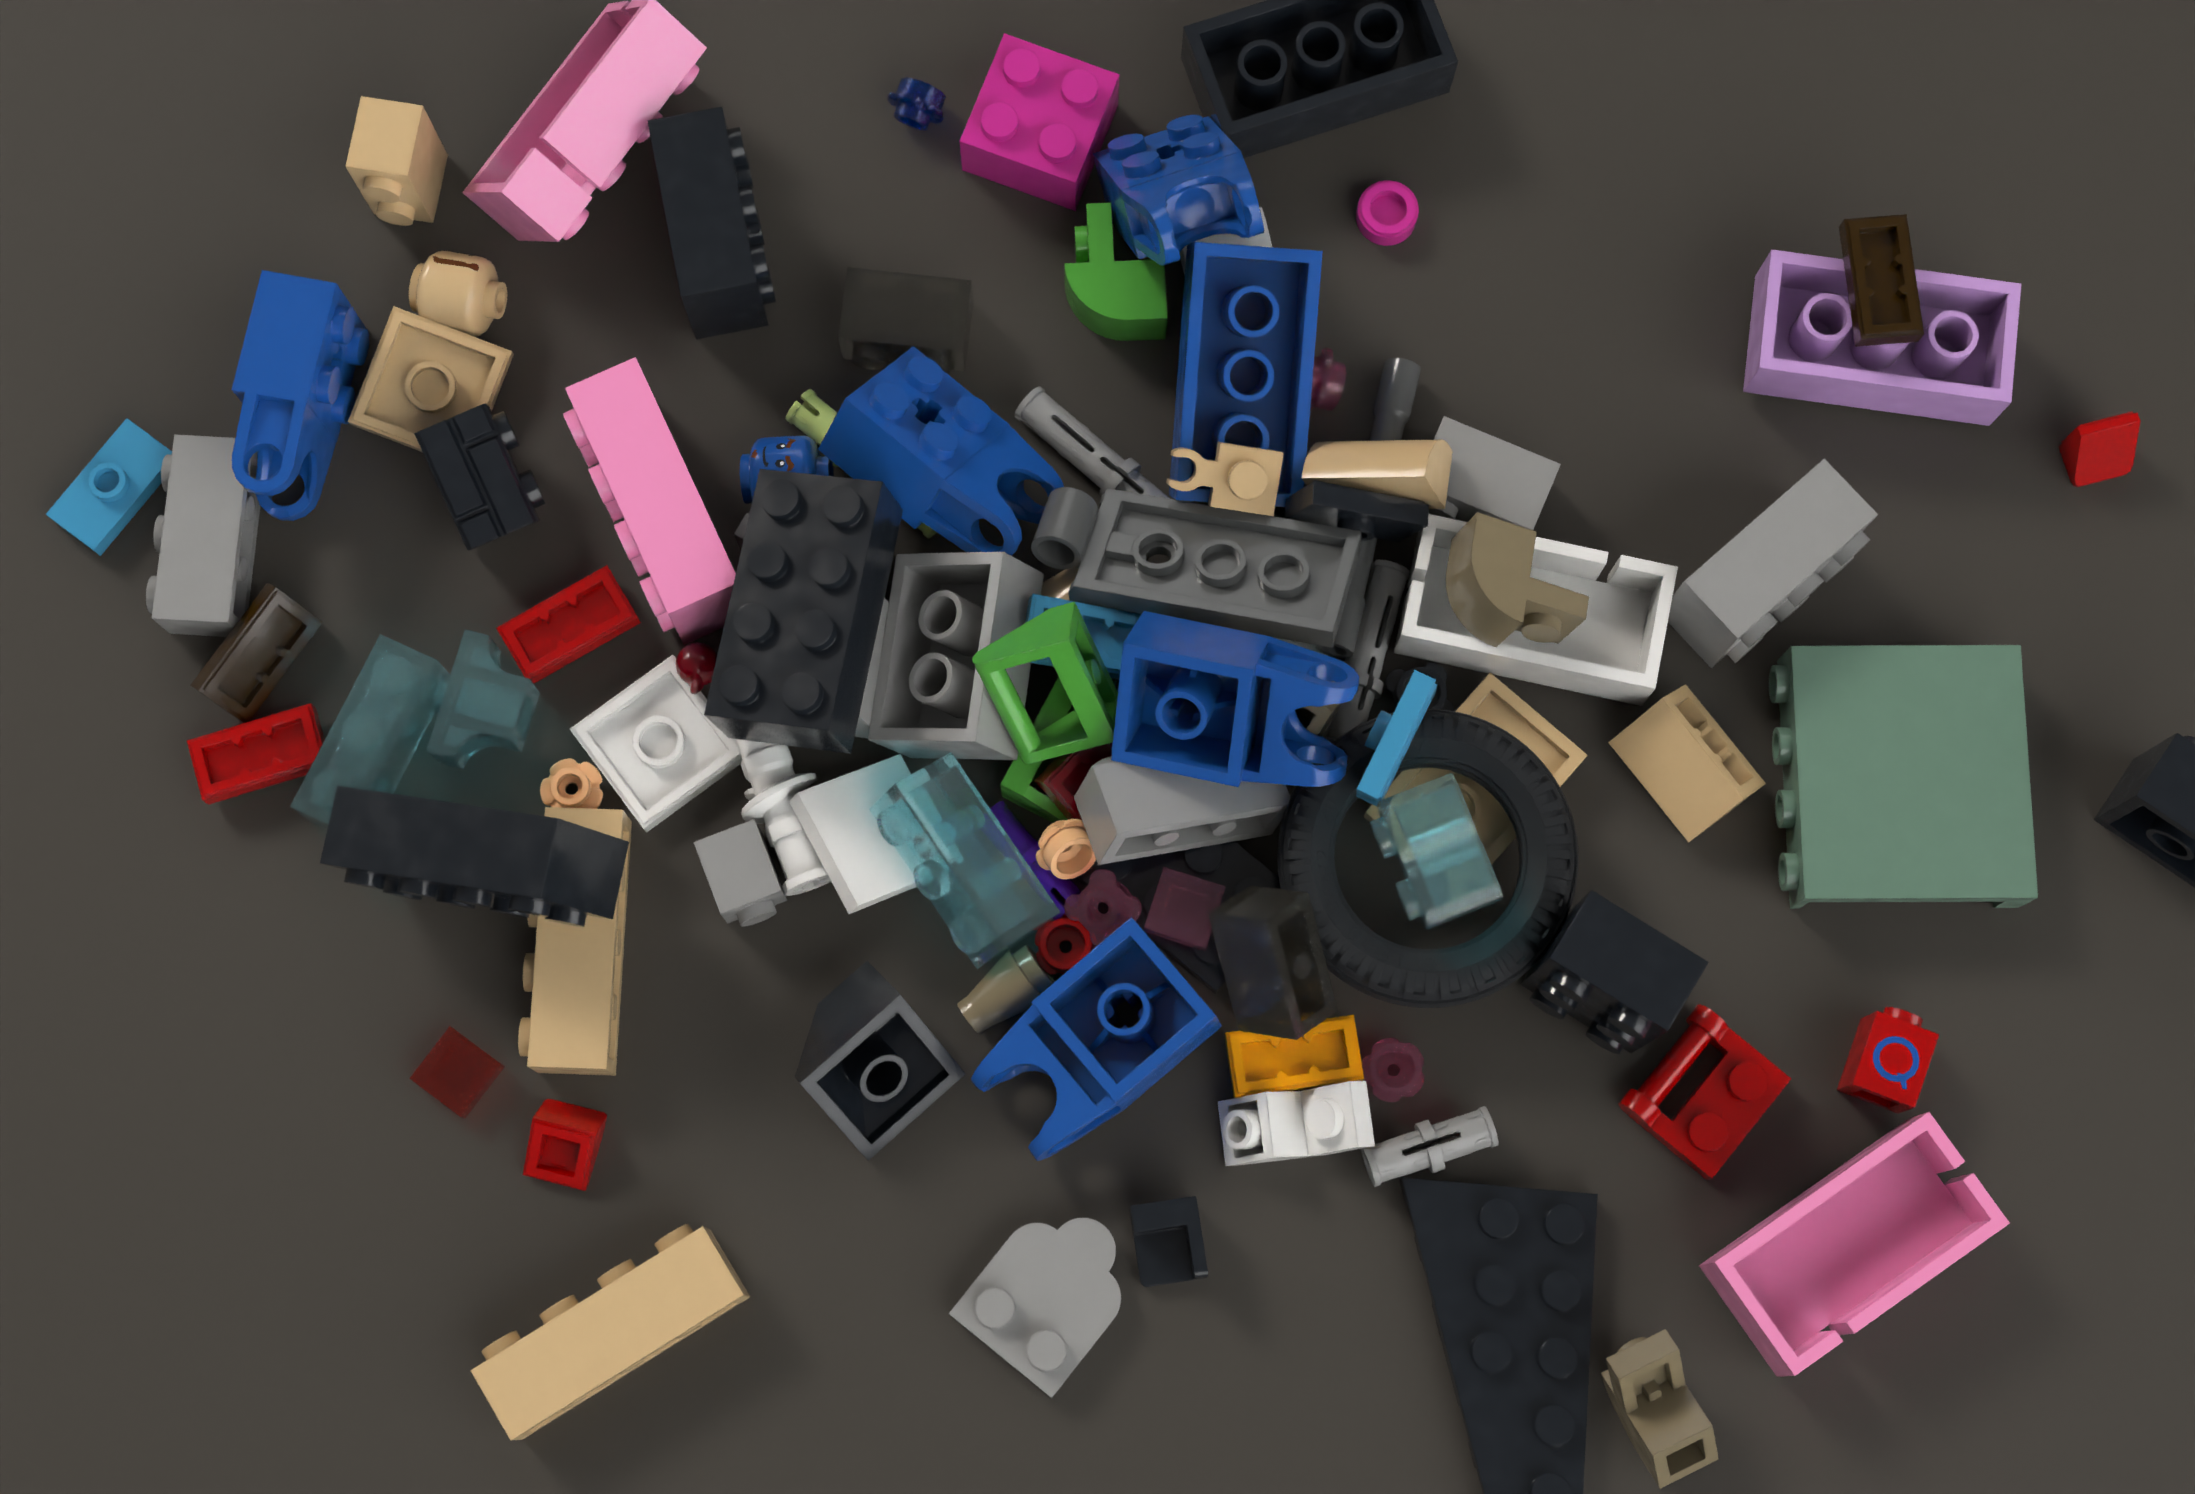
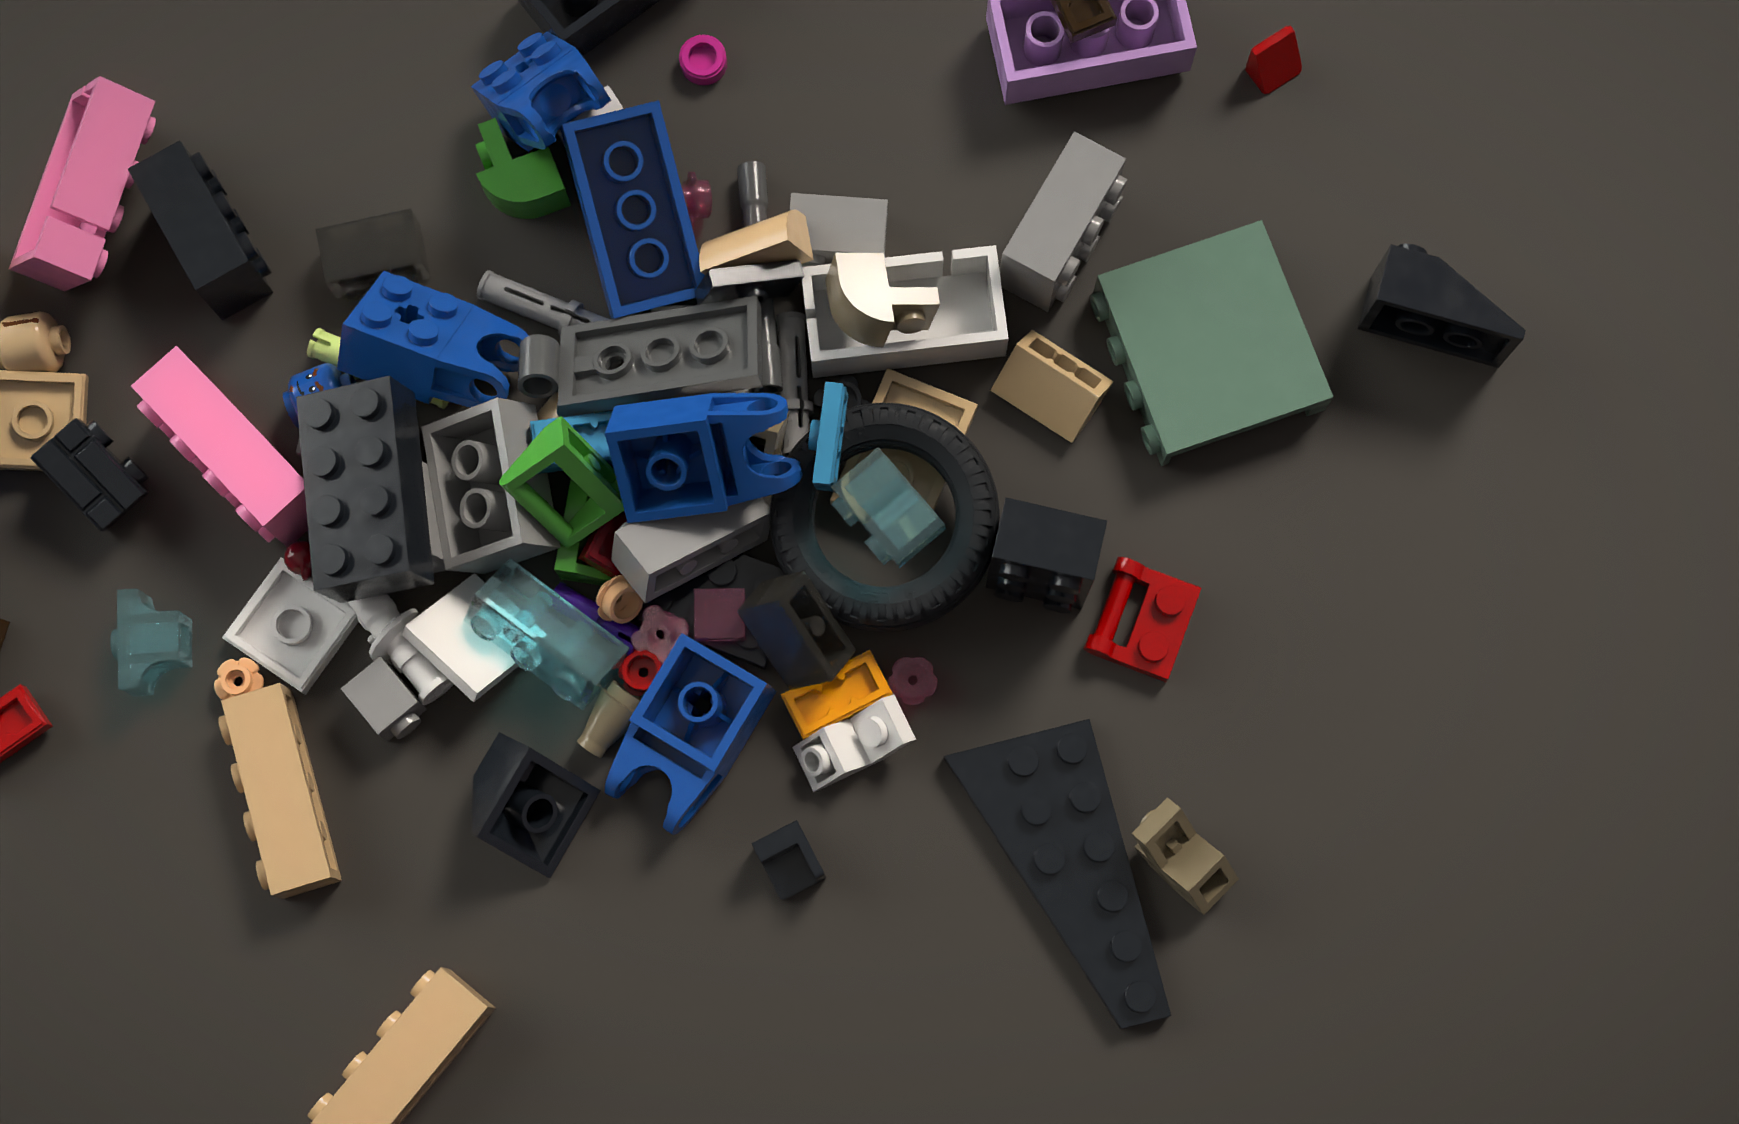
camera: 15 degrees left, 0 degrees up
(374, 728) = (74, 697): clear light blue brick -> none
(457, 1072) = (222, 919): clear red tile -> none
(474, 856) = (177, 753): black brick -> none
(564, 1143) = (319, 943): red slope -> none
(568, 625) = (195, 561): red plate -> none
(917, 103) = (329, 92): clear blue plate -> none
(1039, 121) = (423, 76): dark pink brick -> none
(1045, 1299) = (713, 933): light grey plate -> none
(1239, 477) = (654, 286): tan plate -> none
(1472, 1133) = (979, 707): light grey pin -> none
(1853, 1245) = (1283, 692): bright pink piece -> none
(1889, 1060) = (1266, 550): red brick -> none

